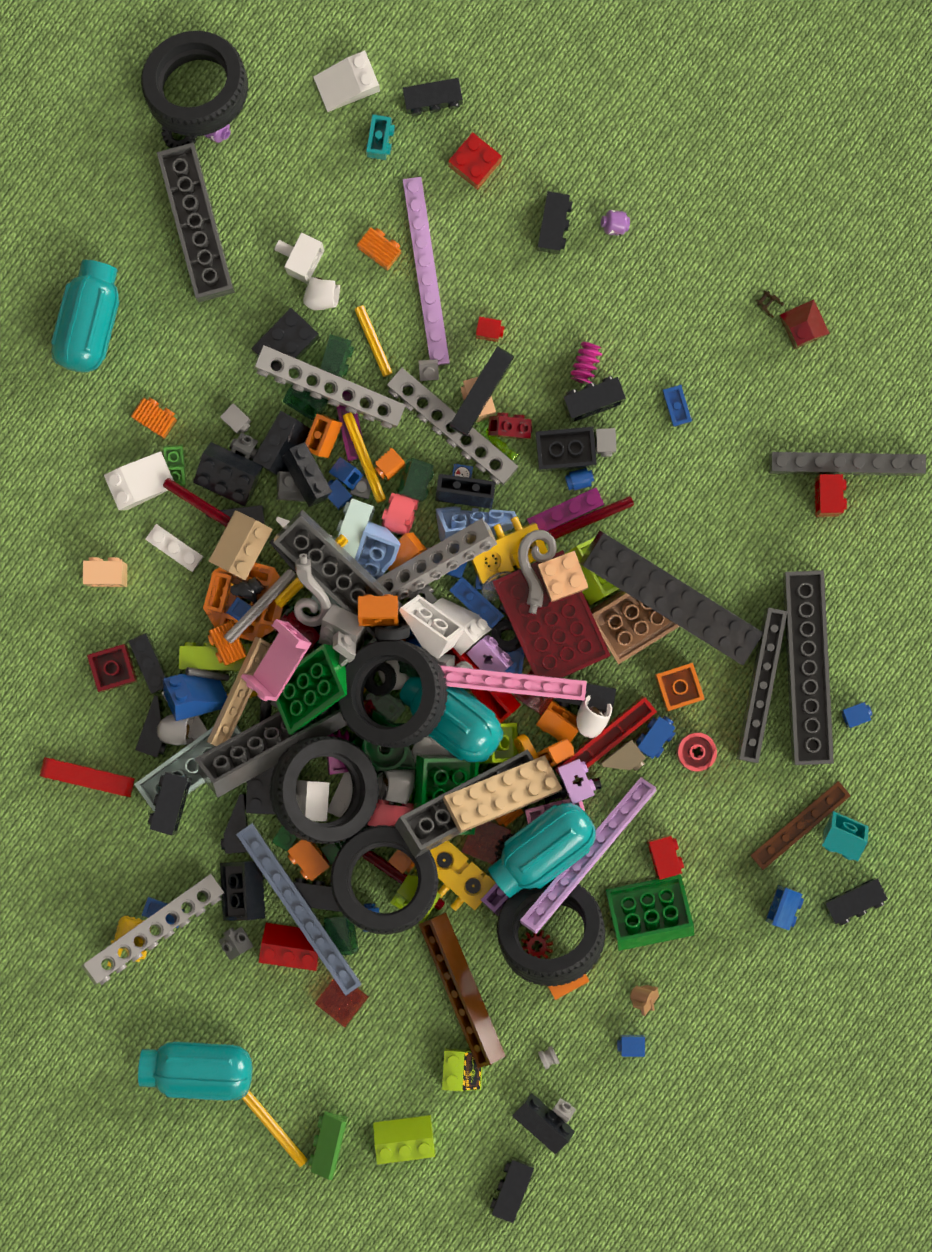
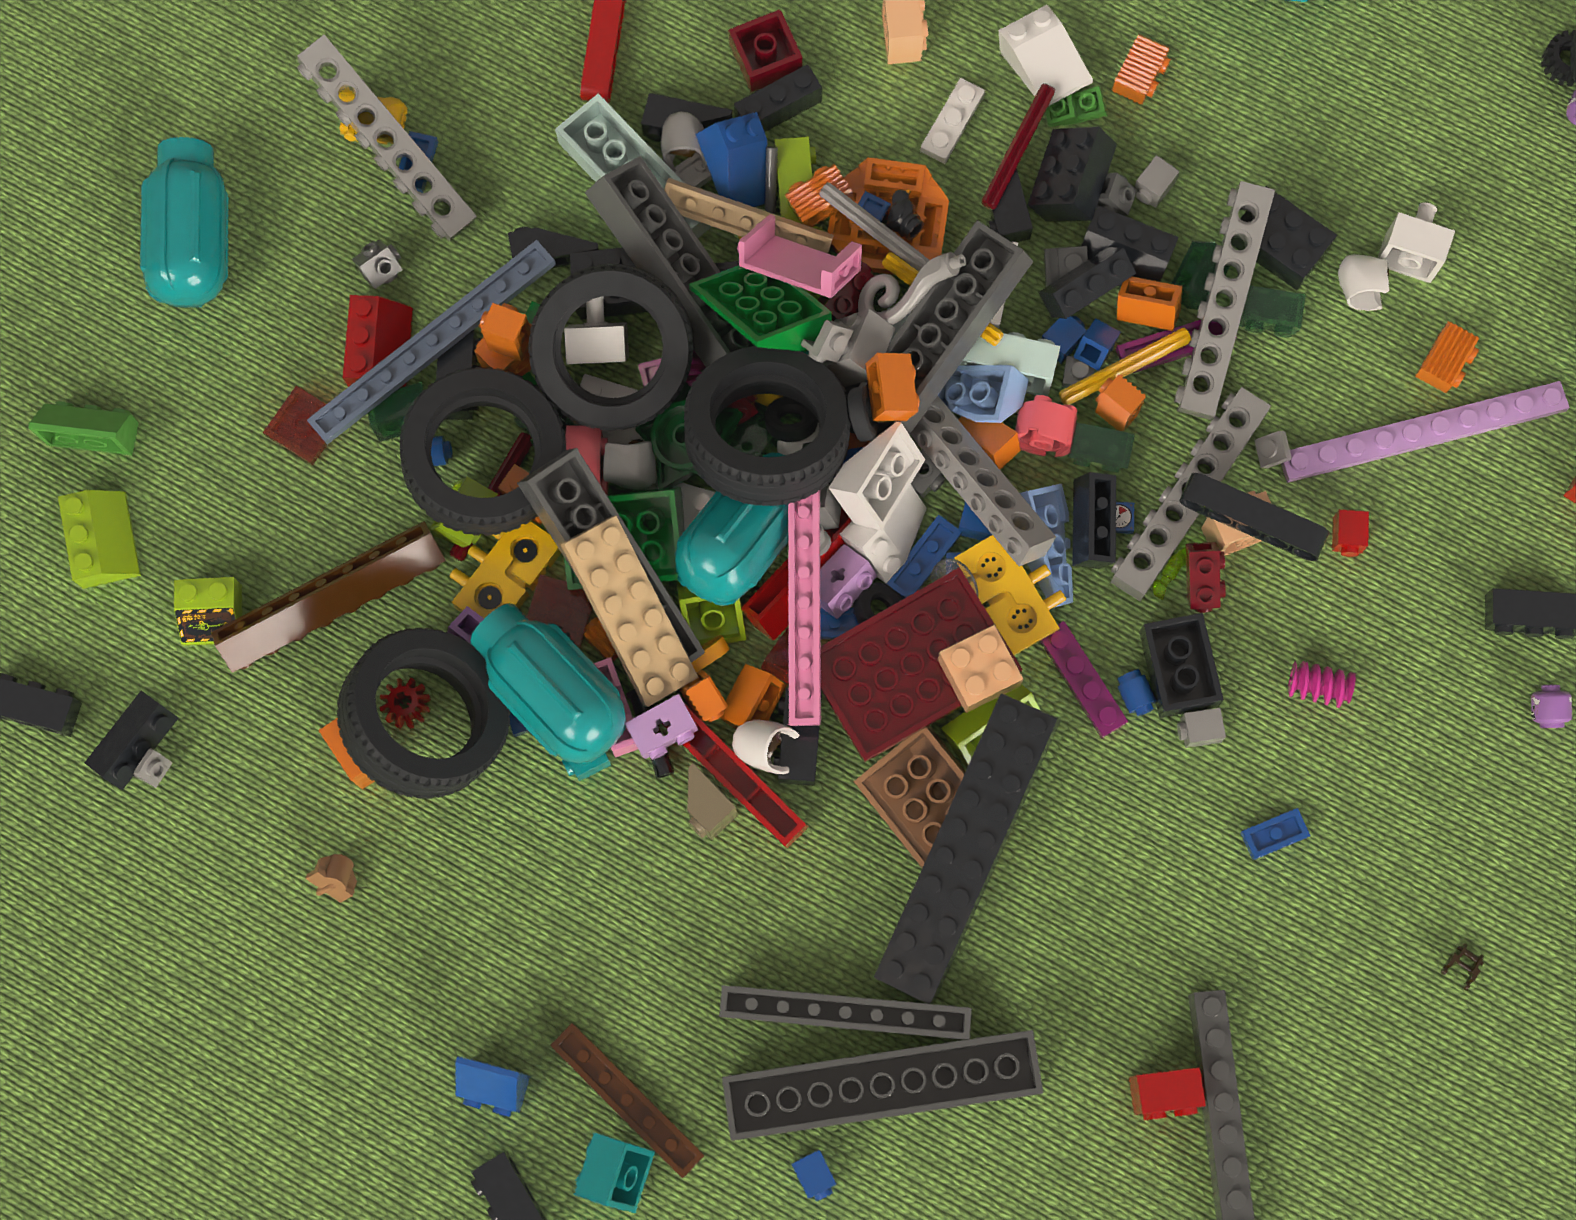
camera: 80 degrees right, 10 degrees down
(169, 803) = (572, 136): black brick -> none
(195, 222) = (1441, 91): dark grey brick -> none
(240, 545) = (966, 195): tan slope -> none
(242, 891) = (453, 267): black slope -> none
(274, 1129) = (110, 350): yellow axle -> none
(306, 858) = (506, 330): none -> orange brick
(373, 341) = (1304, 365): yellow axle -> none
(535, 595) = (951, 632): light grey plant -> none
(548, 1057) = (234, 739): light grey wheel -> none
(591, 517) = (1077, 717): dark red axle -> none
(593, 399) = (1266, 698): black brick -> none
(605, 836) = (568, 776): lavender plate -> none
(631, 1045) = (259, 865): blue brick -> none
(650, 912) = (469, 872): green slope -> none
(659, 732) = (754, 857): blue brick -> none
(665, 857) = (557, 884): red brick -> none
(679, 687) = (828, 881): orange brick -> none
(706, 747) = (718, 904): coral brick -> none
(804, 324) = (1439, 1027): dark red slope -> none

